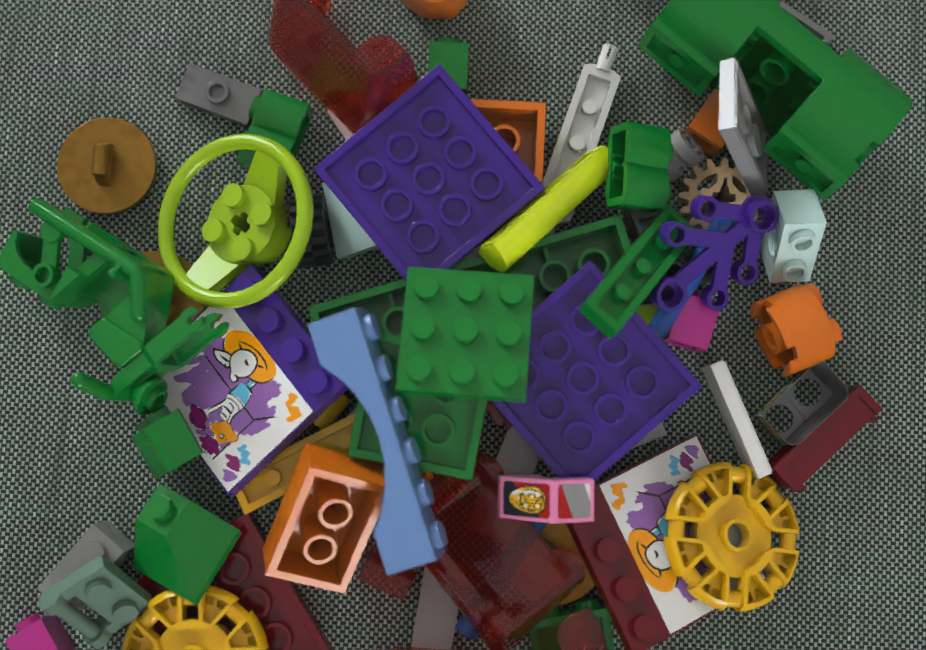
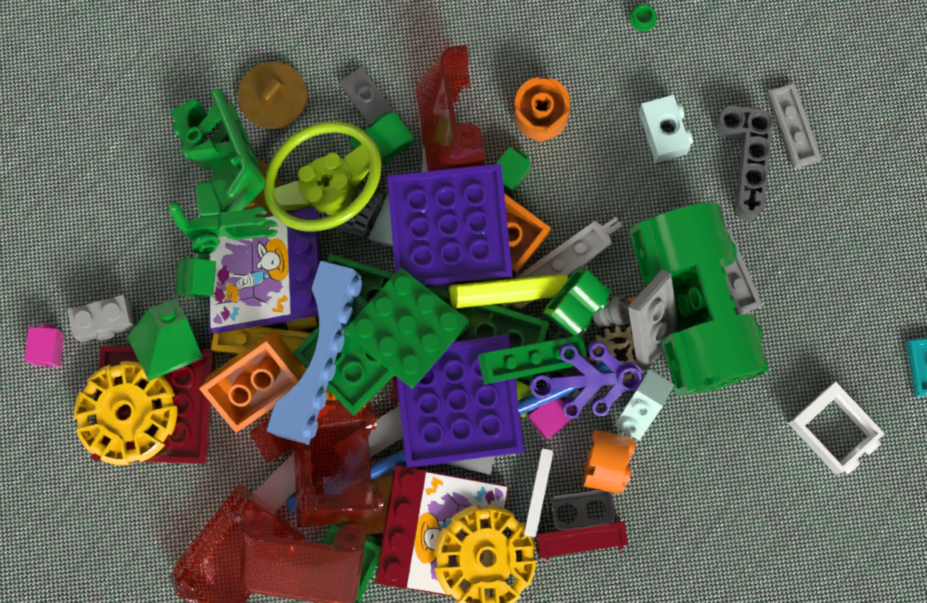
camera: 40 degrees right, 5 degrees down
(104, 590) = (104, 339): sand green plate -> none
(546, 499) = (388, 455): slope -> none

